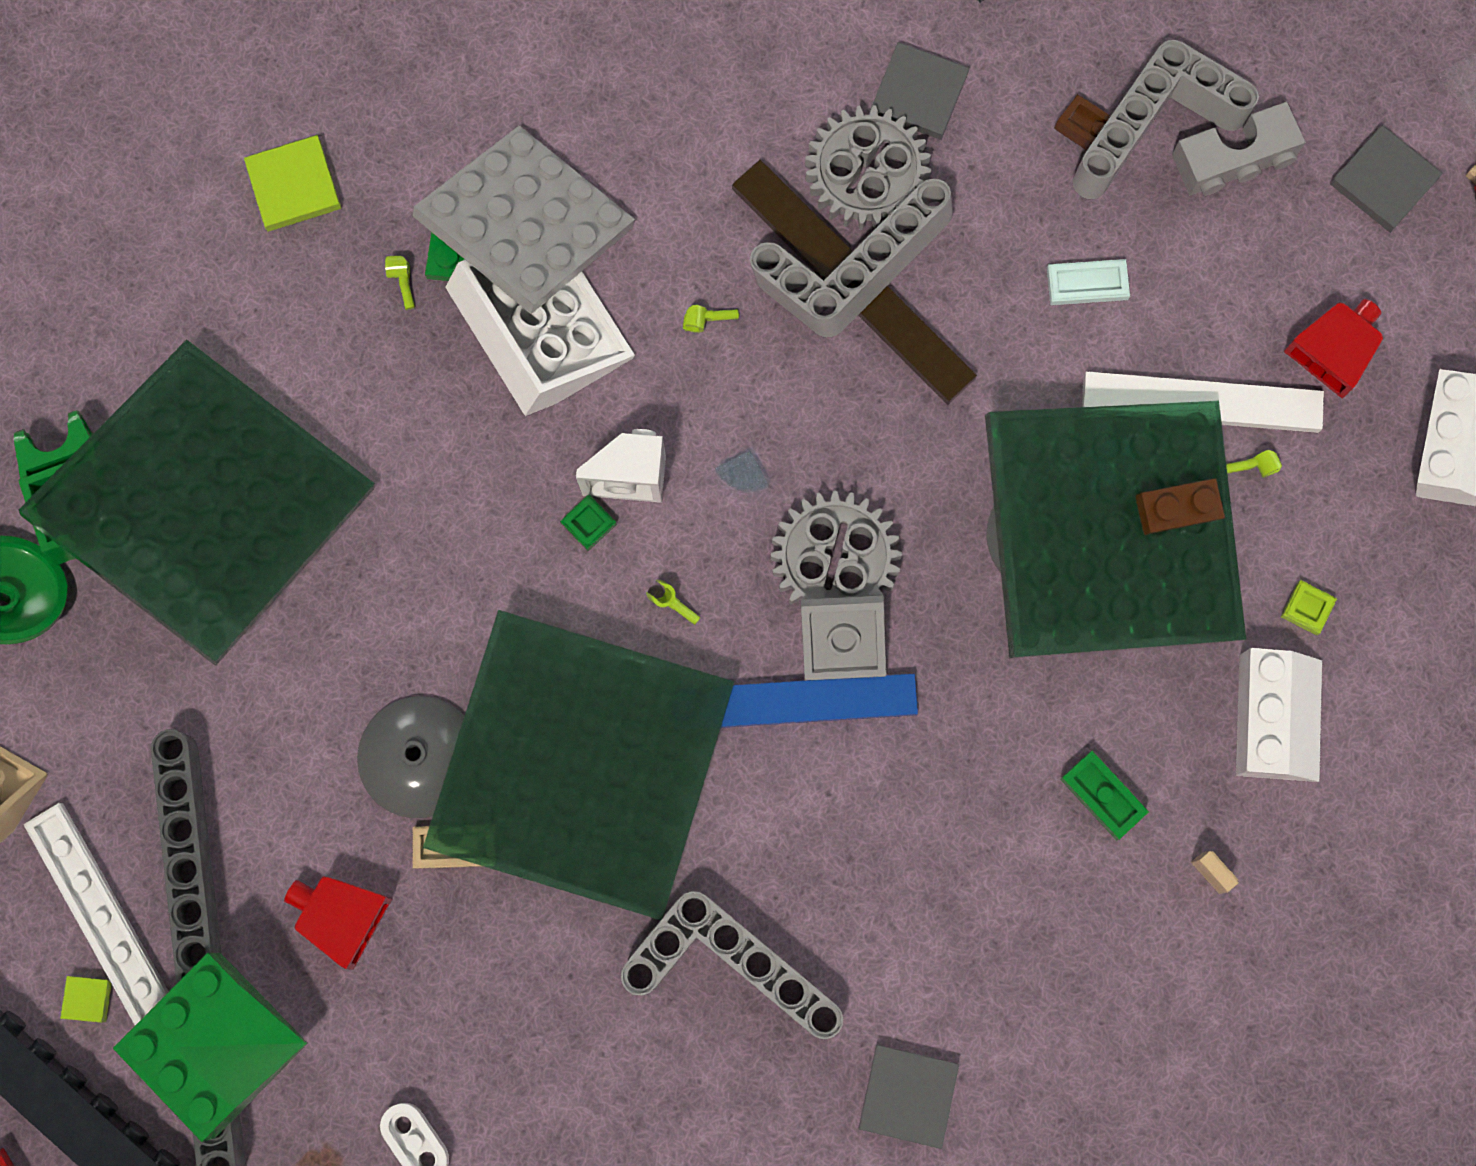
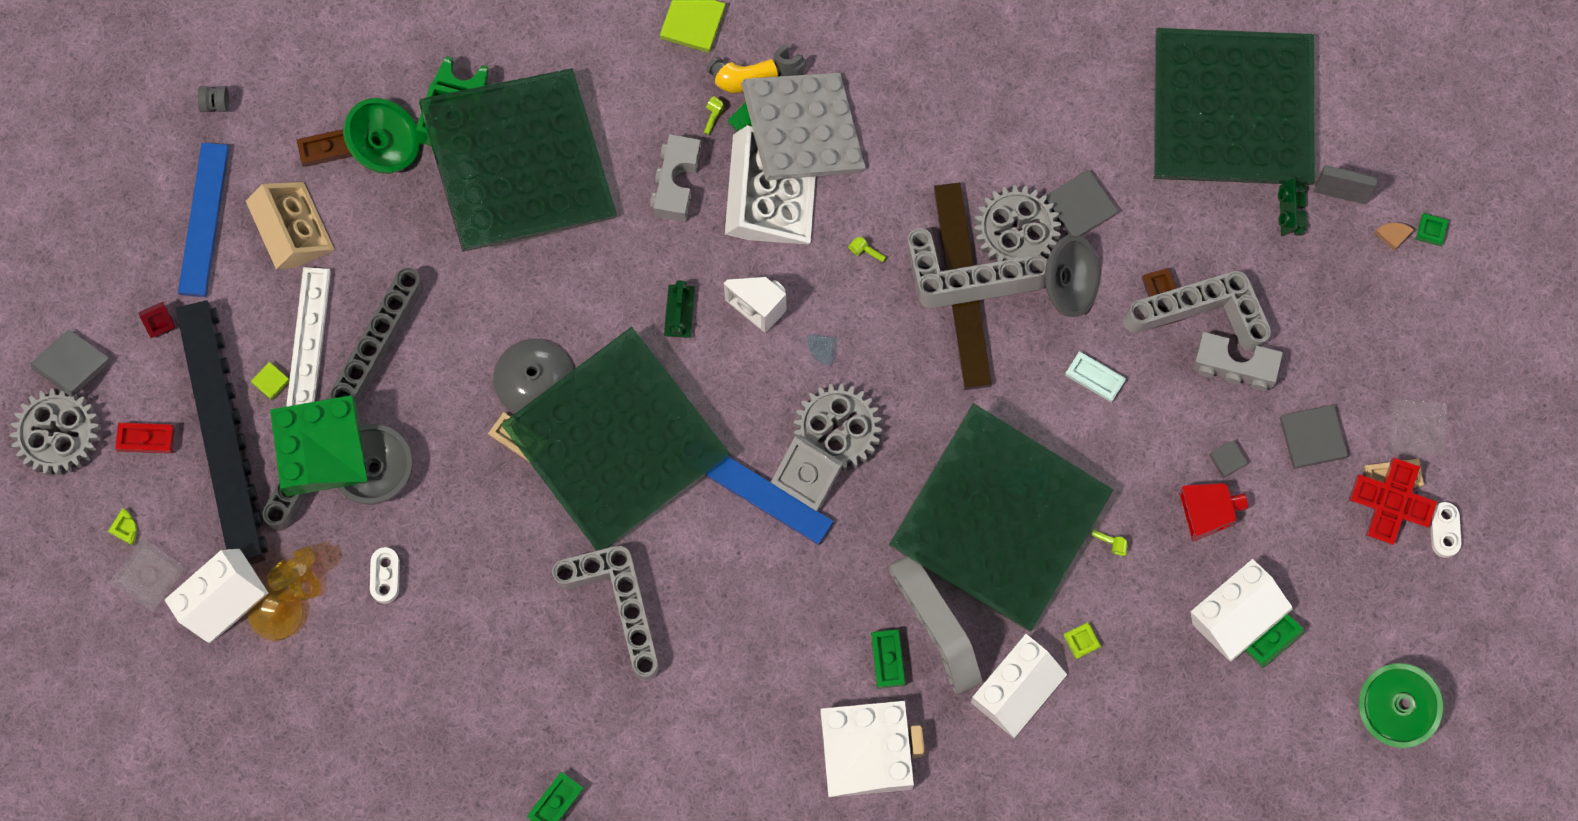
camera: 35 degrees right, 5 degrees down
(327, 996) = (395, 462): none -> dark grey dish
(337, 917) = (430, 430): red torso -> none
(393, 217) = (730, 76): none -> piece
(400, 357) = (679, 156): none -> light grey arch
(537, 547) = (679, 310): none -> dark green hinge
(588, 522) = (716, 316): green tile -> none
(674, 603) = (730, 391): lime hand -> none
(908, 1096) = (661, 740): dark grey tile -> none
(979, 179) = (1072, 276): none -> dark grey dish
(1165, 925) = (866, 749): none -> white slope
(1180, 506) = (1045, 530): reddish brown plate -> none
(1187, 726) = (939, 623): none -> light grey beam
(1238, 403) = (1124, 498): white tile -> none
(1311, 272) = (1228, 459): none -> dark grey tile

